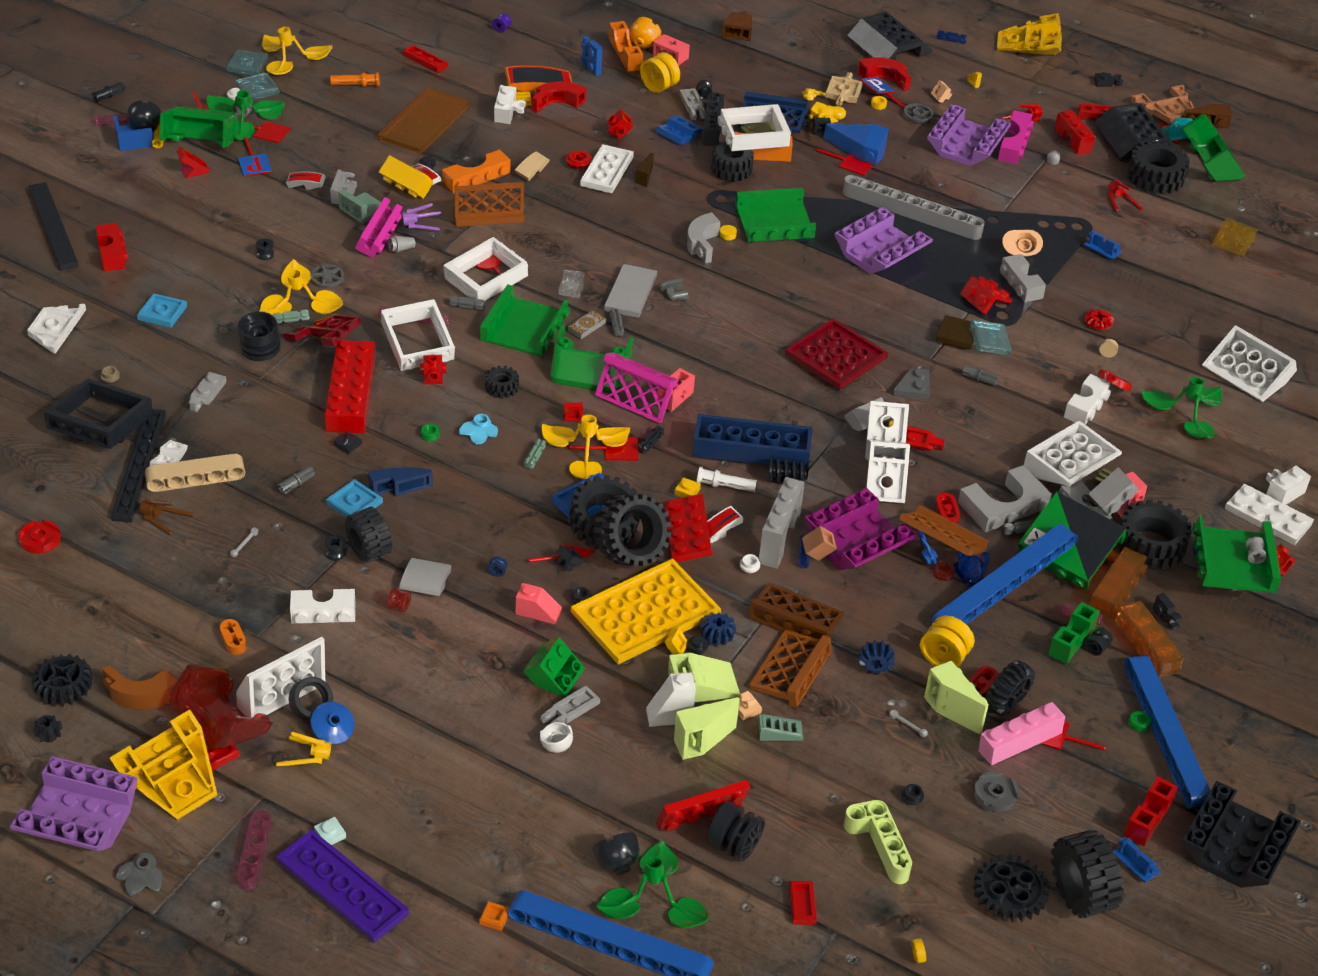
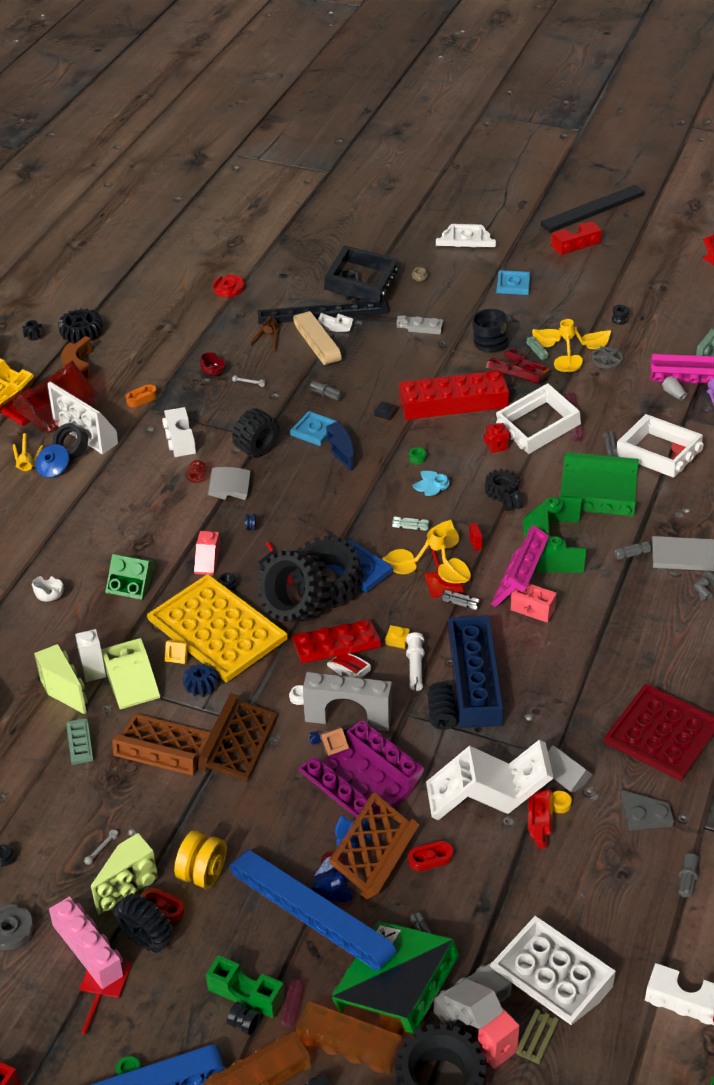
camera: 85 degrees right, 0 degrees up
(208, 564) = (211, 364): none -> dark red hair
(528, 378) = (512, 500): none -> black wheel
(571, 706) = (88, 595): light grey hinge -> none
(572, 283) = (669, 502): clear brick -> none
(586, 324) = (619, 530): tile -> none
(698, 644) = (178, 669): black plate -> none
(748, 706) = (107, 715): light nougat tile -> none
(876, 657) = (176, 803): dark blue gear -> none
(993, 514) = (471, 938): light grey arch -> none

